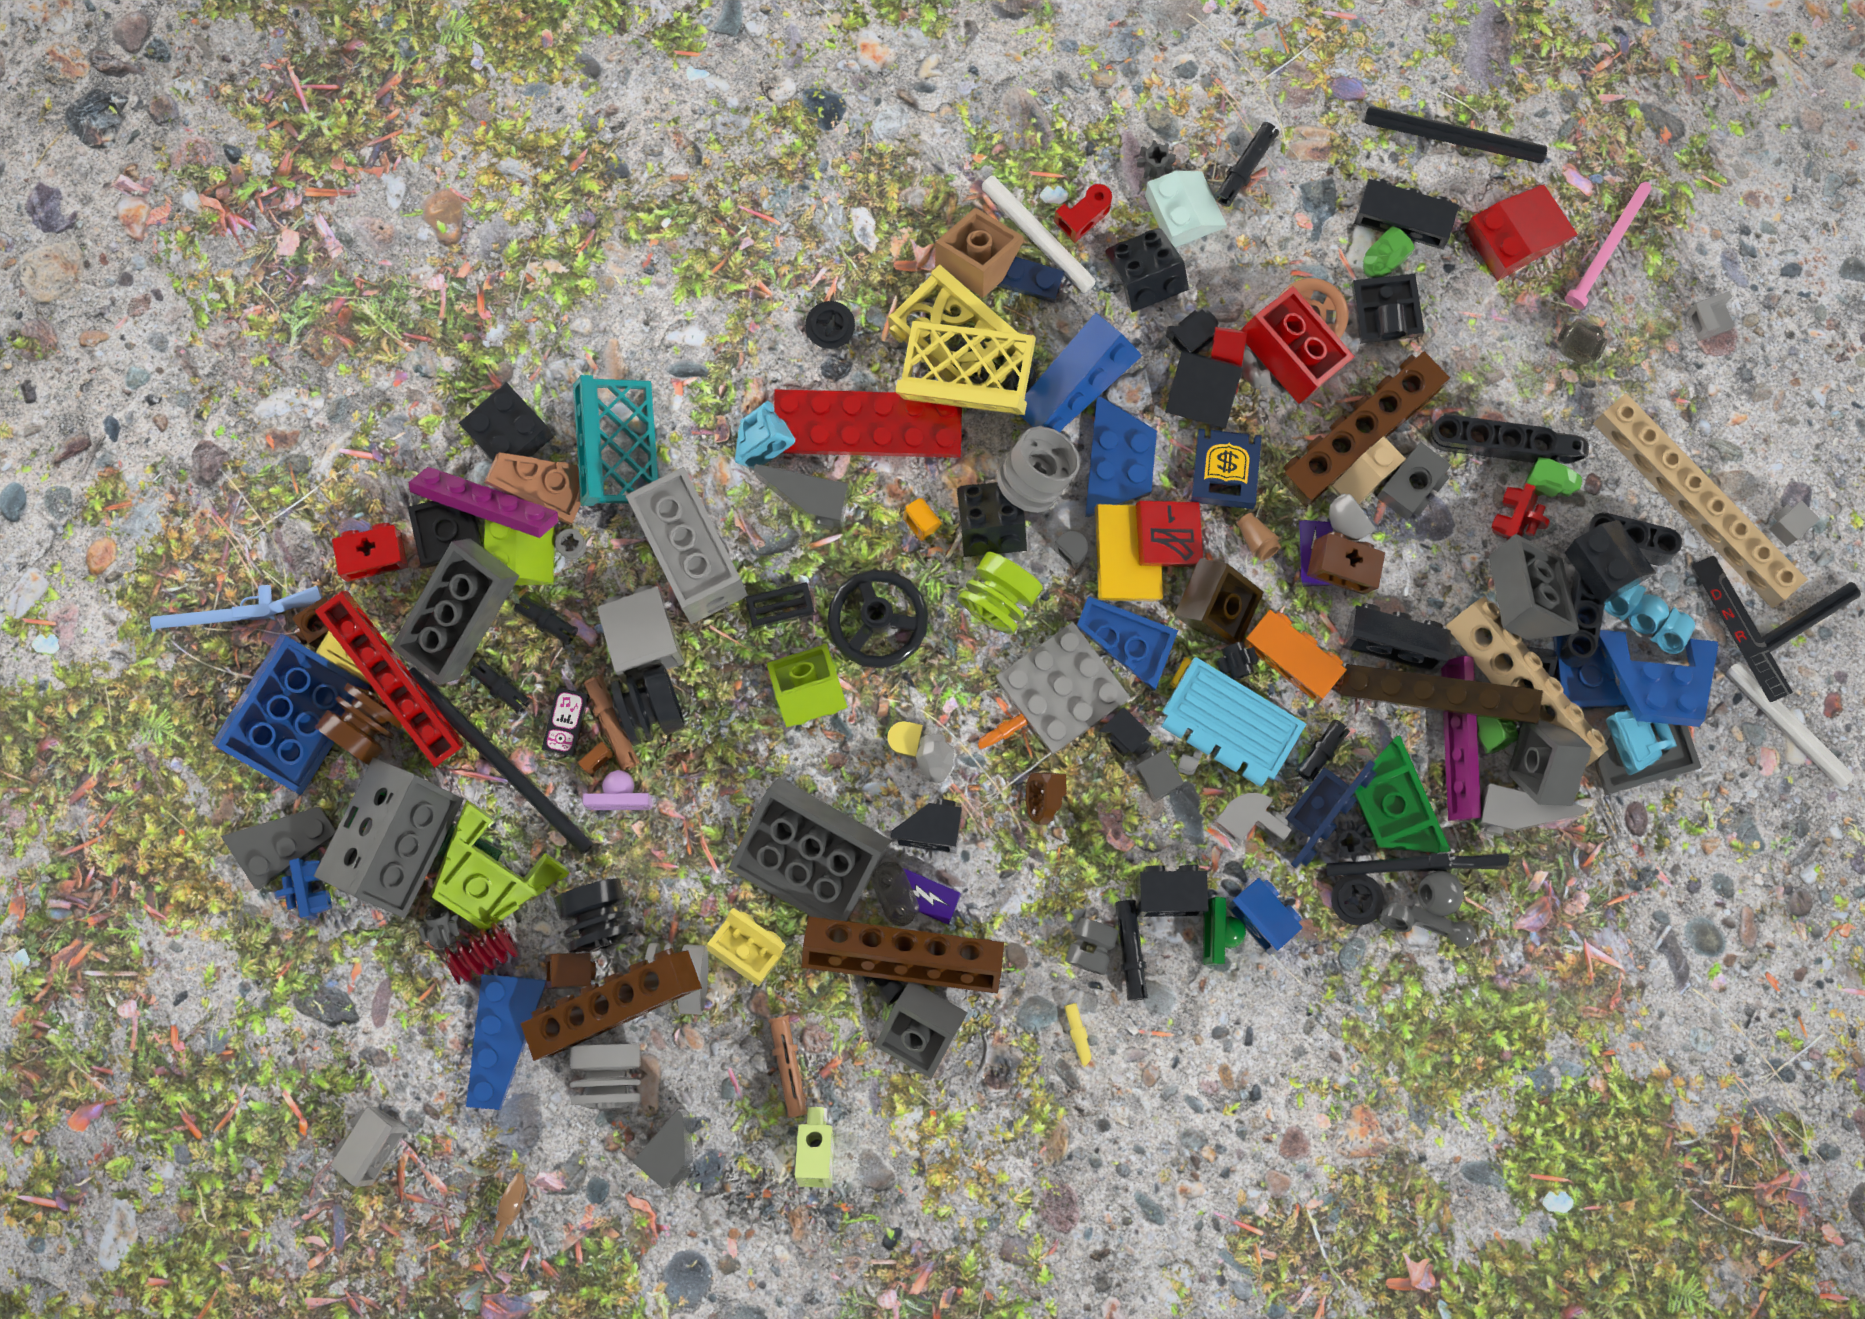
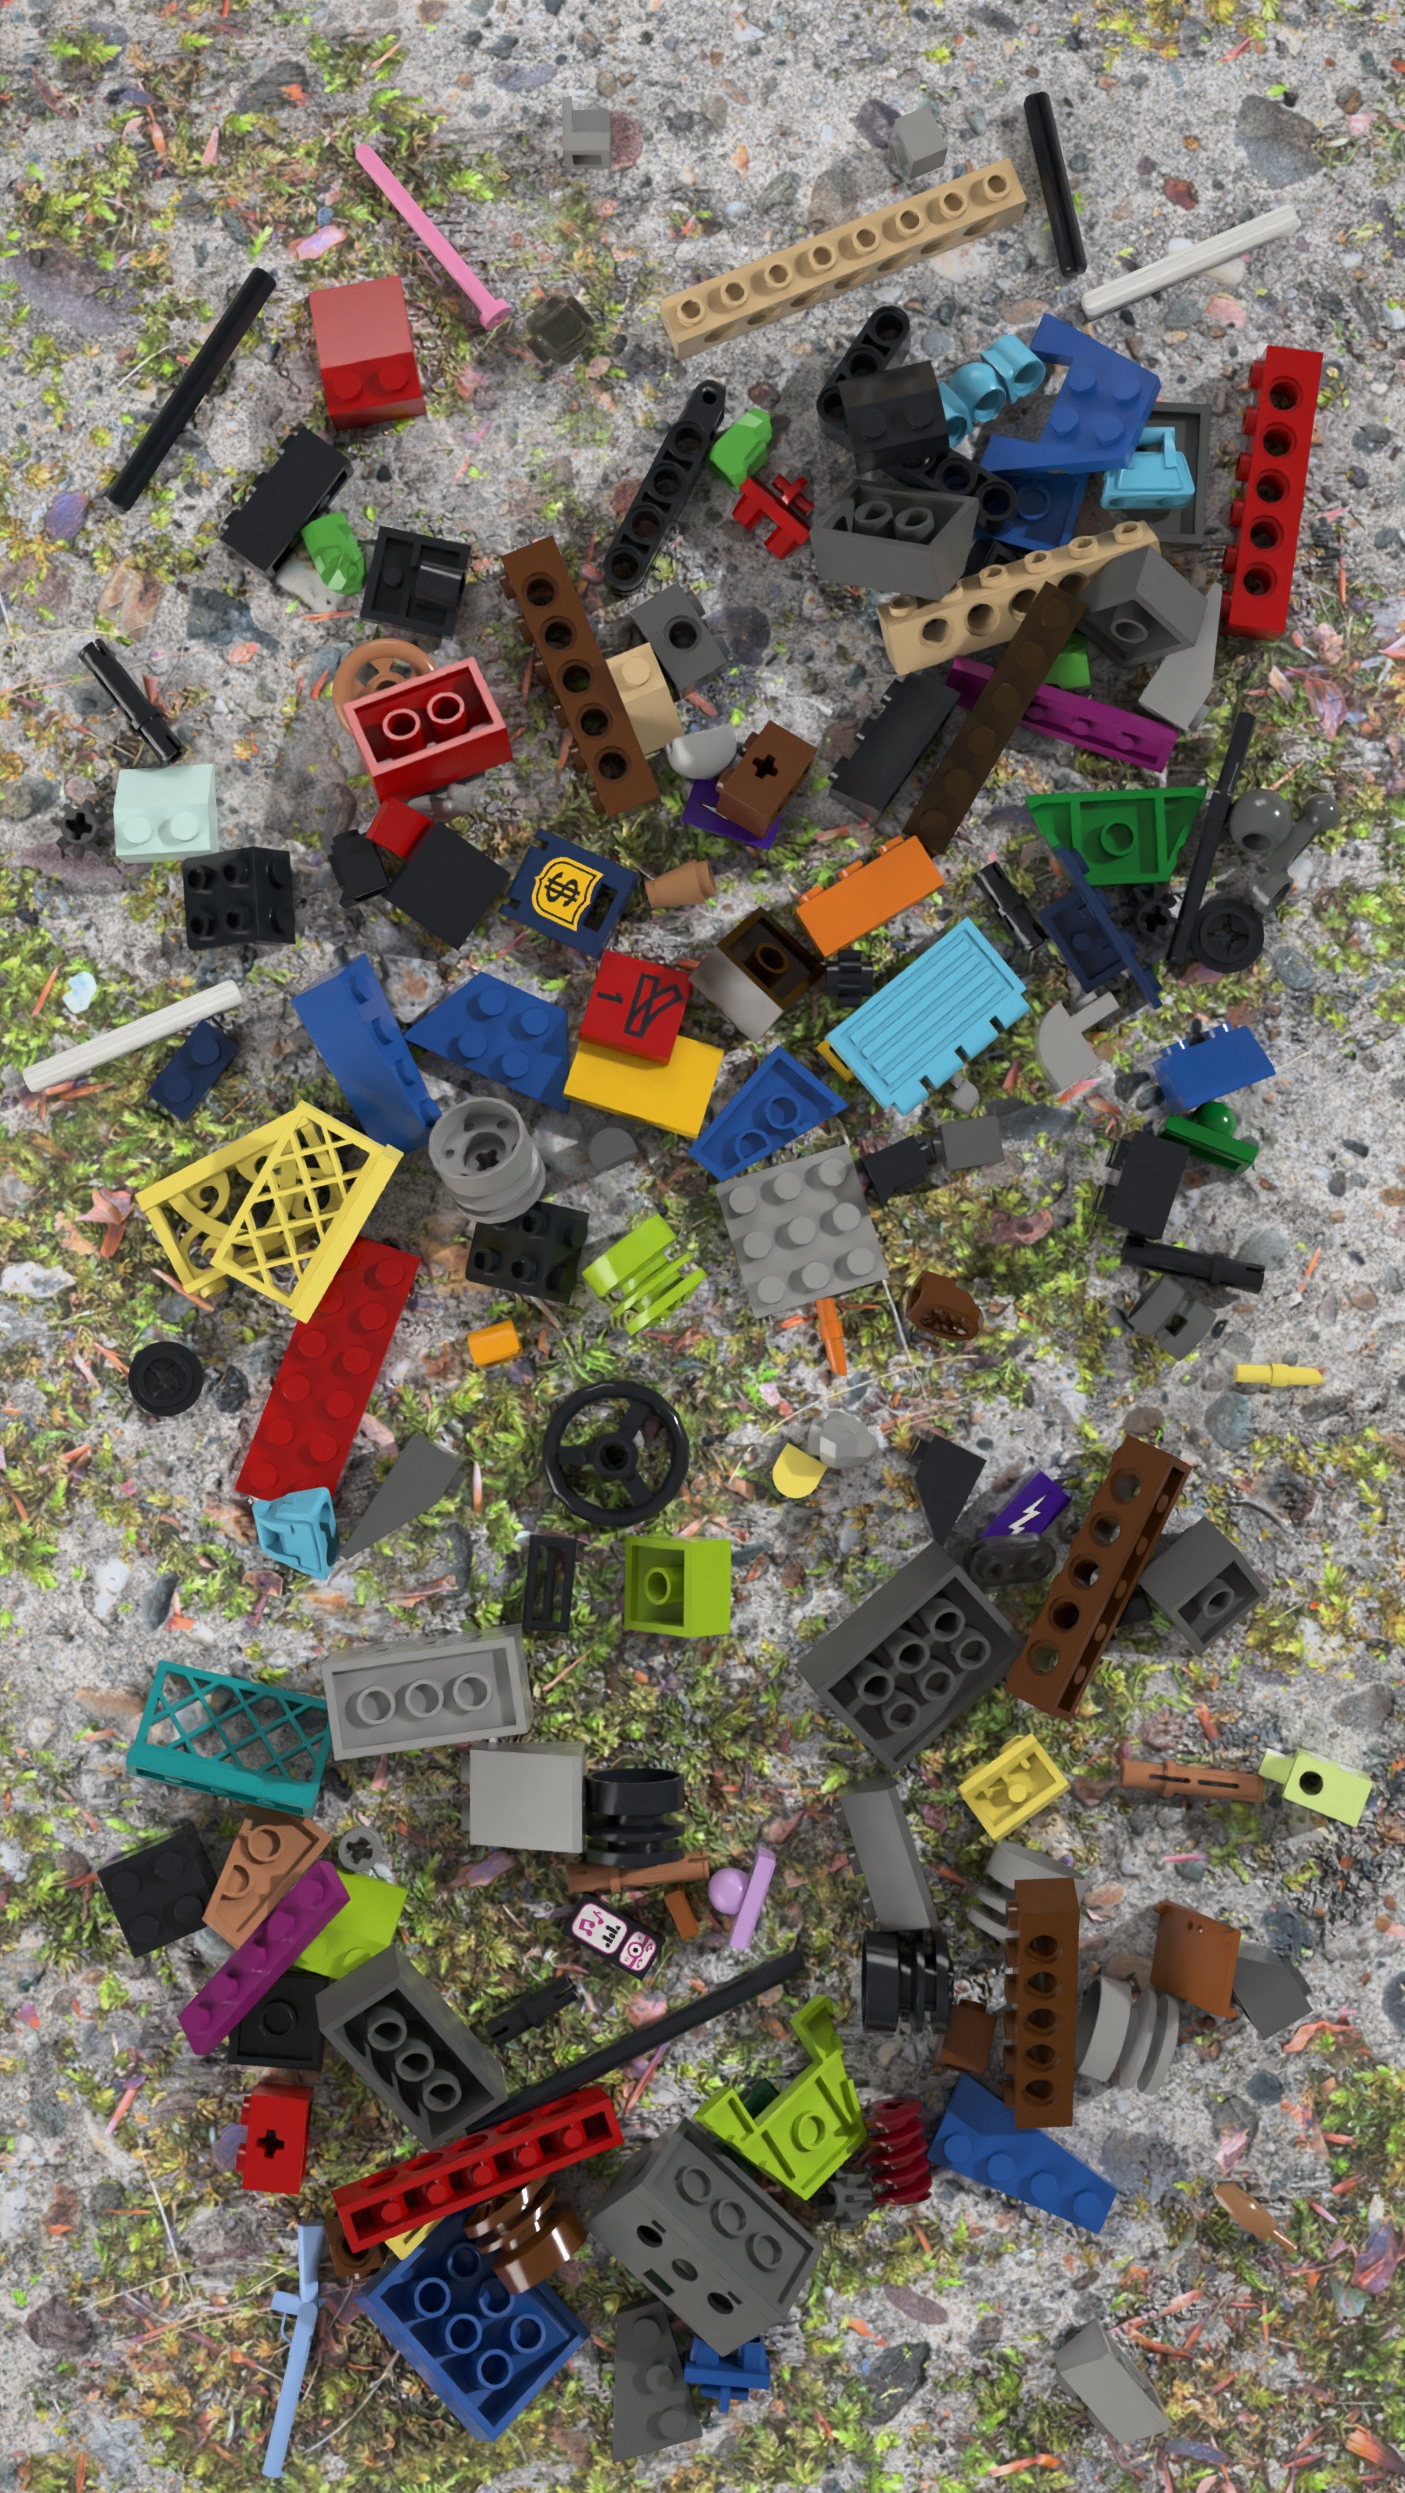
camera: 80 degrees left, 10 degrees up
(546, 619) = (458, 1917): black pin -> none
(672, 1100) = (1195, 1958): none -> dark orange door
(675, 877) = (885, 1854): none -> dark grey slope
(978, 251) = (133, 1132): medium nougat slope -> none
(1086, 213) = (126, 957): red leg -> none
(1742, 629) = (1038, 273): black sticker -> none
(1743, 818) = (1297, 377): none -> red brick

